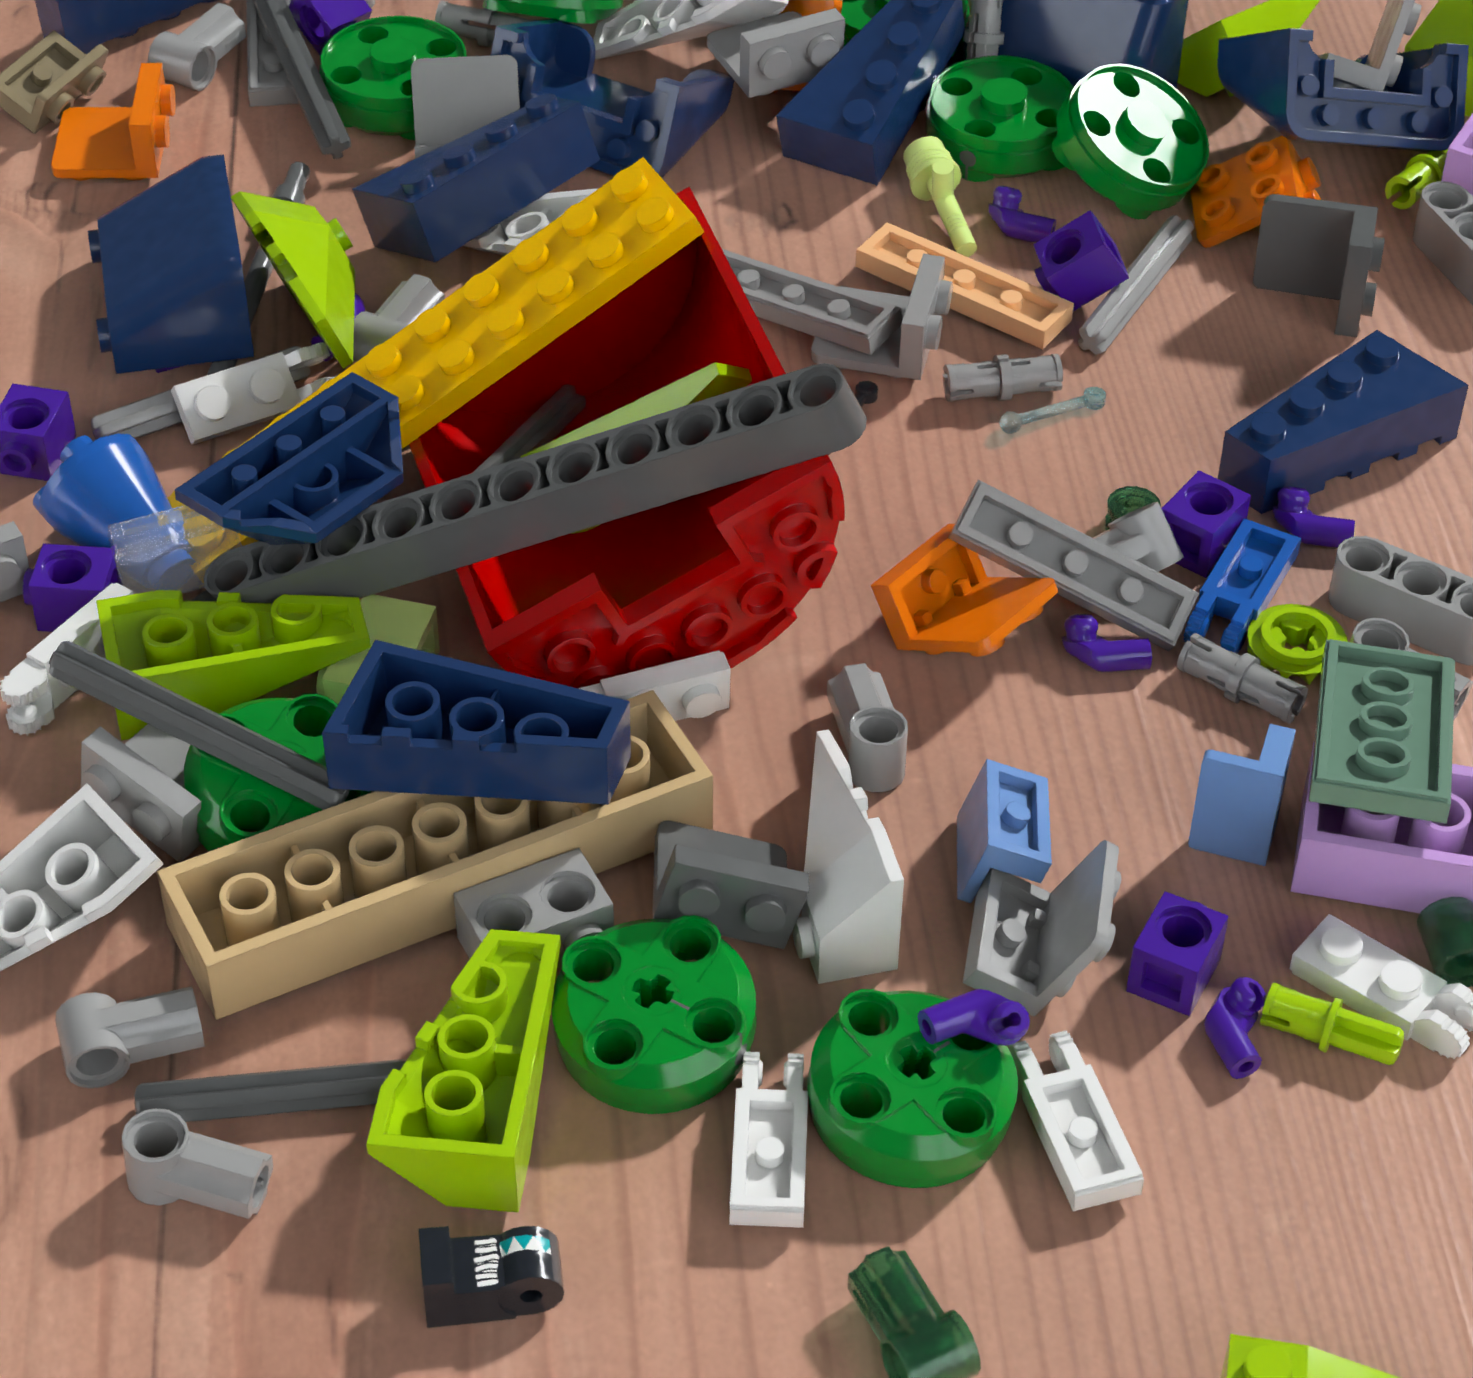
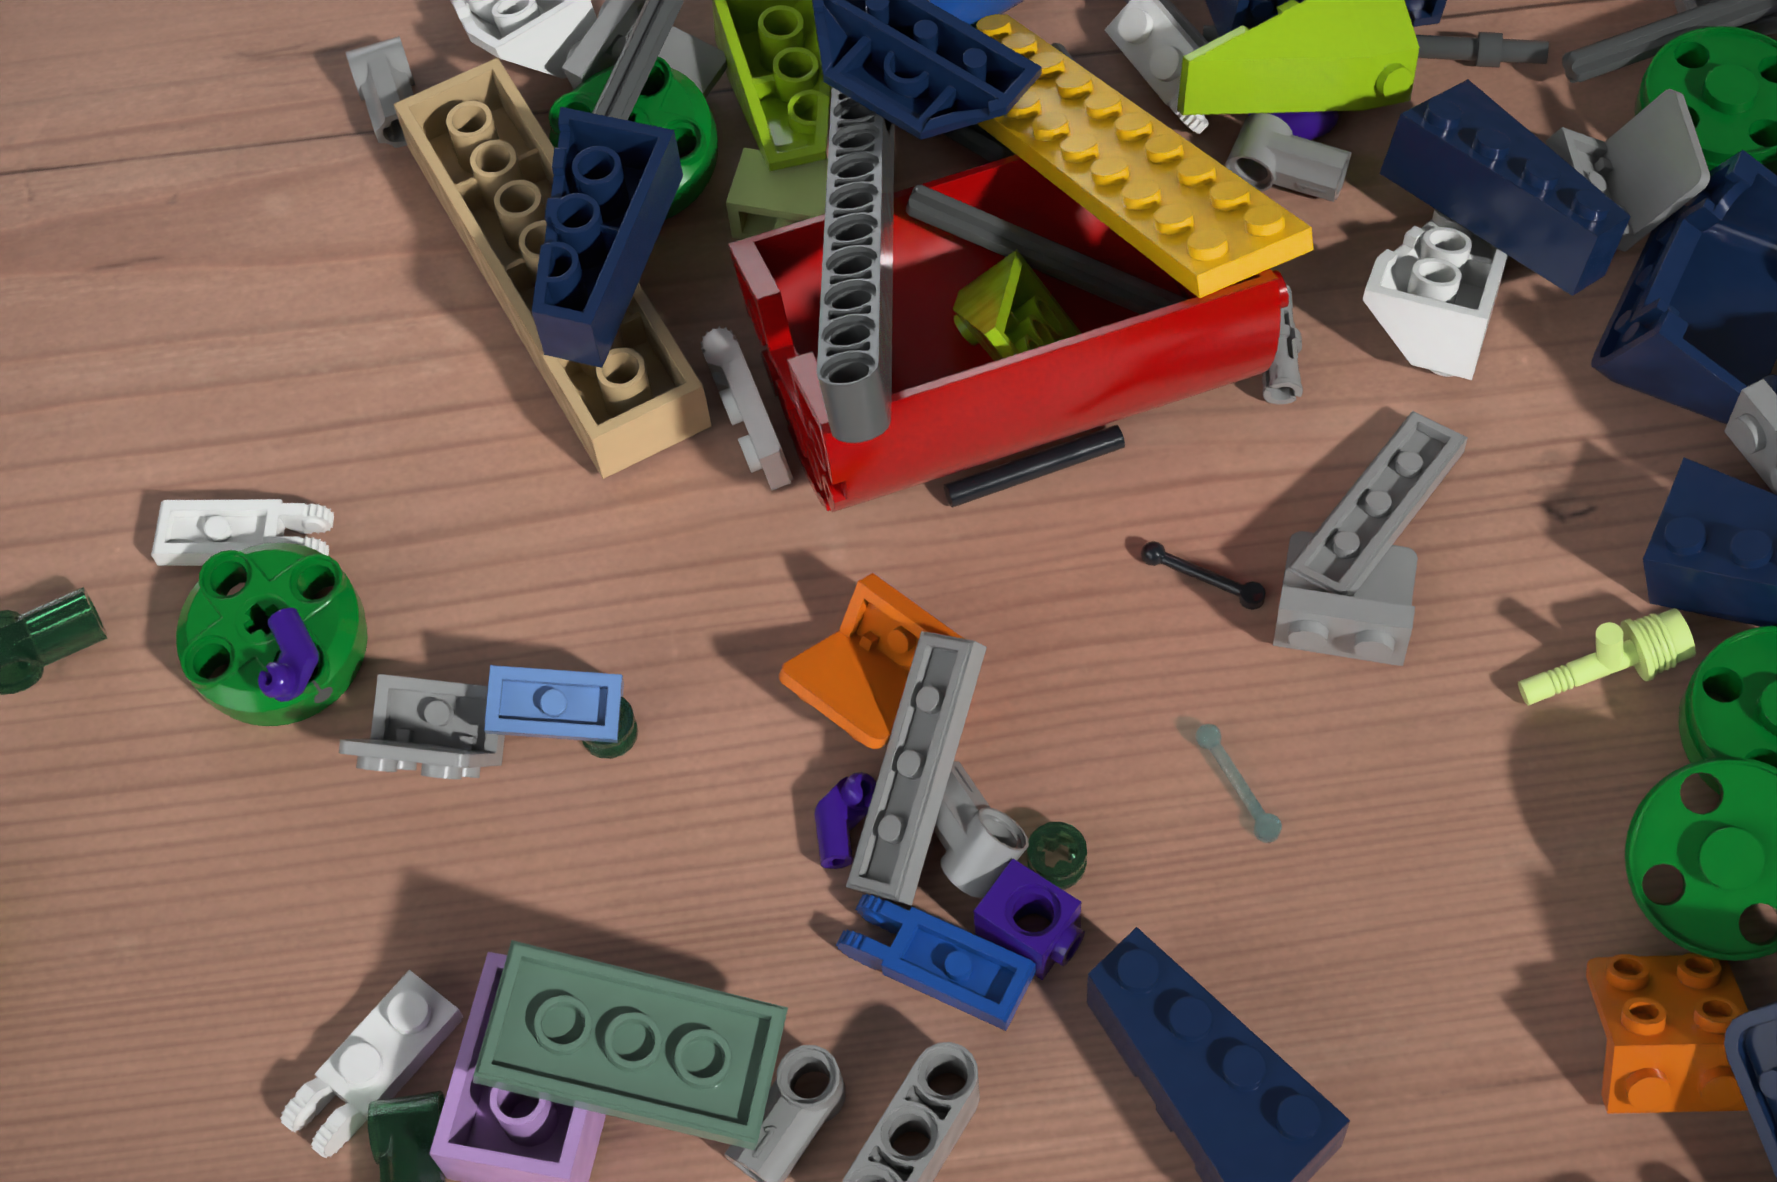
camera: 95 degrees right, 15 degrees up
(191, 1166) = (249, 146): light grey piece -> none
(268, 1091) = (329, 222): dark grey axle -> none
(470, 1090) = (277, 307): lime wedge -> none
(489, 1275) = (127, 340): black leg -> none
(546, 898) = (477, 332): light grey brick -> none
(654, 1014) = (370, 436): green piece -> none
(729, 881) = (505, 475): dark grey bracket -> none
(854, 878) = (511, 574): white wedge -> none
(869, 728) = (718, 591): light grey piece -> none
(977, 288) = (1438, 684): light nougat plate -> none
(1002, 377) = (1273, 723): light grey pin -> none
(1013, 220) = (1588, 743): dark purple arm -> none
(1077, 1125) = (233, 767): white hinge -> none
(1079, 261) = (1478, 799): dark purple brick -> none
(1143, 275) = (1483, 879): light grey axle -> none
(1177, 953) = (396, 840): dark purple brick -> none
(1230, 1023) = (334, 909): dark purple arm -> none
(1241, 799) = (564, 913): medium blue panel -> none
(1242, 678) = (799, 948): light grey pin -> none
(1295, 626) = (858, 984): lime gear -> none
(1299, 521) = (1054, 1041): dark purple arm -> none
(1320, 253) = (1496, 1114): dark grey bracket -> none
(1331, 1024) = (323, 1001): lime axle -> none

